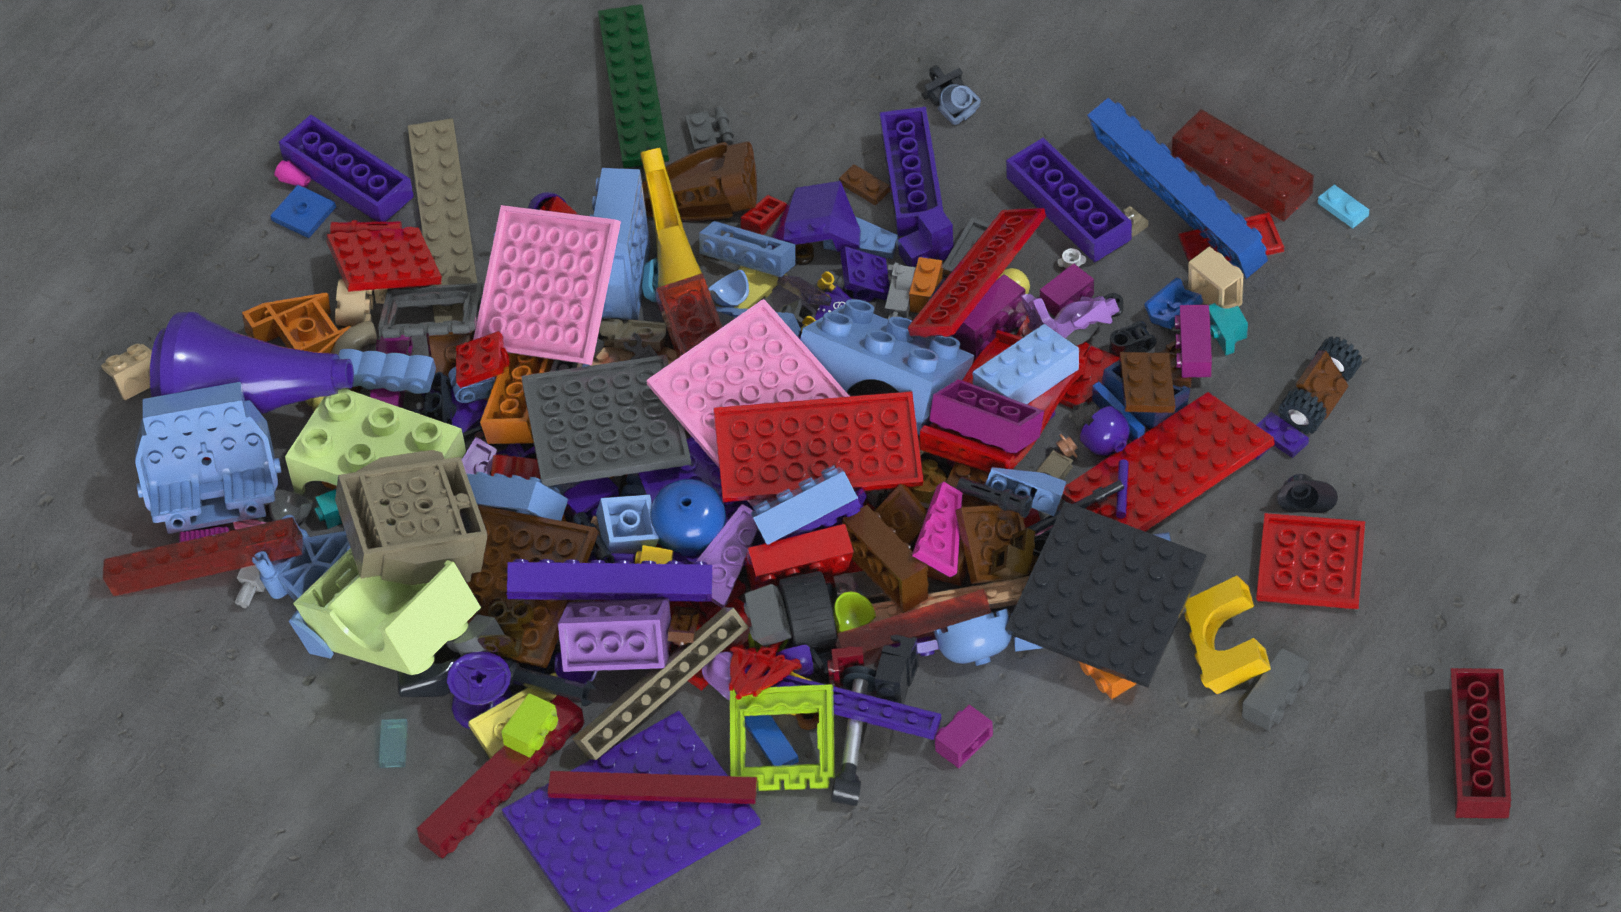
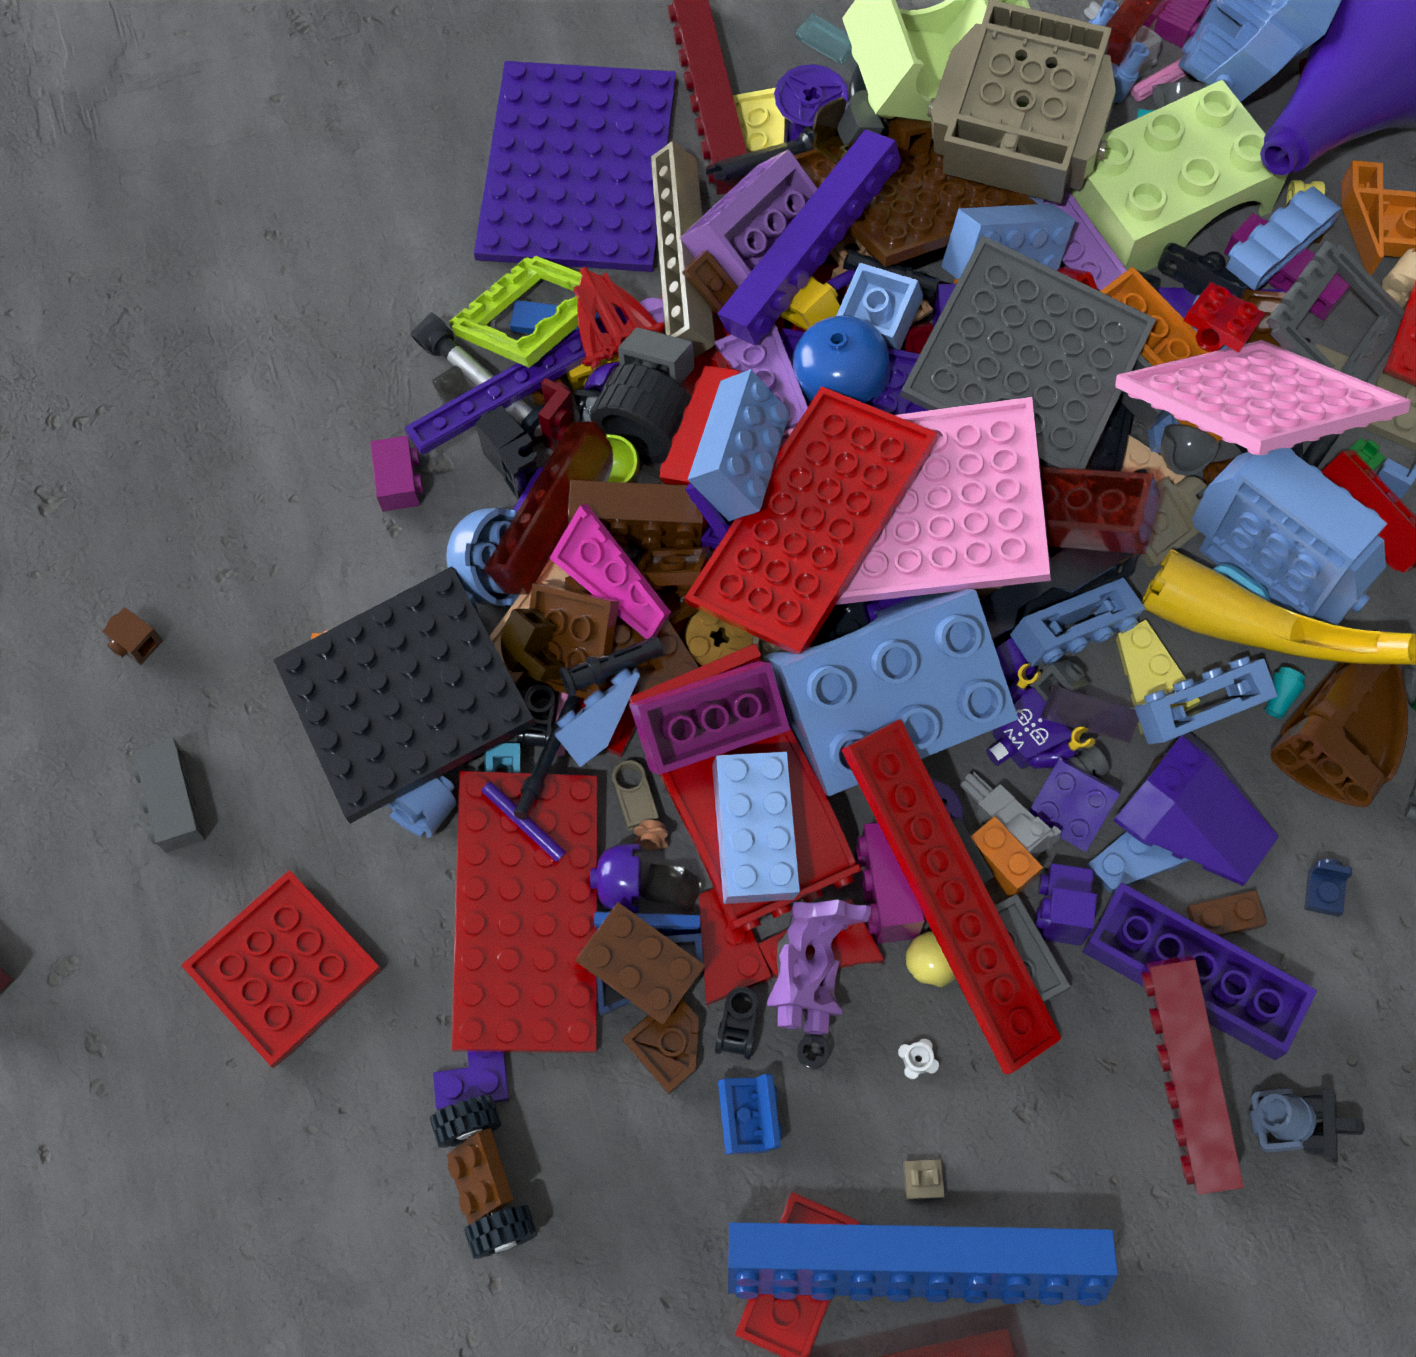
camera: 125 degrees right, 15 degrees up
(356, 337) = (1355, 240): dark tan cylinder -> none
(530, 725) = (726, 113): lime brick -> none
(652, 787) = (578, 184): dark red tile -> none
(697, 224) = (1288, 686): none -> teal cone
(730, 290) = (1150, 631): light blue helmet -> none
(761, 217) = (1243, 765): red slope -> none
(808, 152) = (1327, 887): none -> dark blue bracket
(975, 130) = (1194, 1075): none -> dark red brick
(1066, 288) = (869, 1009): magenta brick -> none
(1069, 199) = (1009, 1119): dark purple brick -> none
(1193, 341) = (665, 1079): magenta brick -> none
(1204, 789) = (131, 636): none -> reddish brown brick
(1205, 616) = (243, 757): yellow arch -> none
(1215, 279) = (731, 1183): tan piece -> none
(1227, 326) = (667, 1149): teal brick -> none
(1304, 494) = (371, 1033): black piece -> none

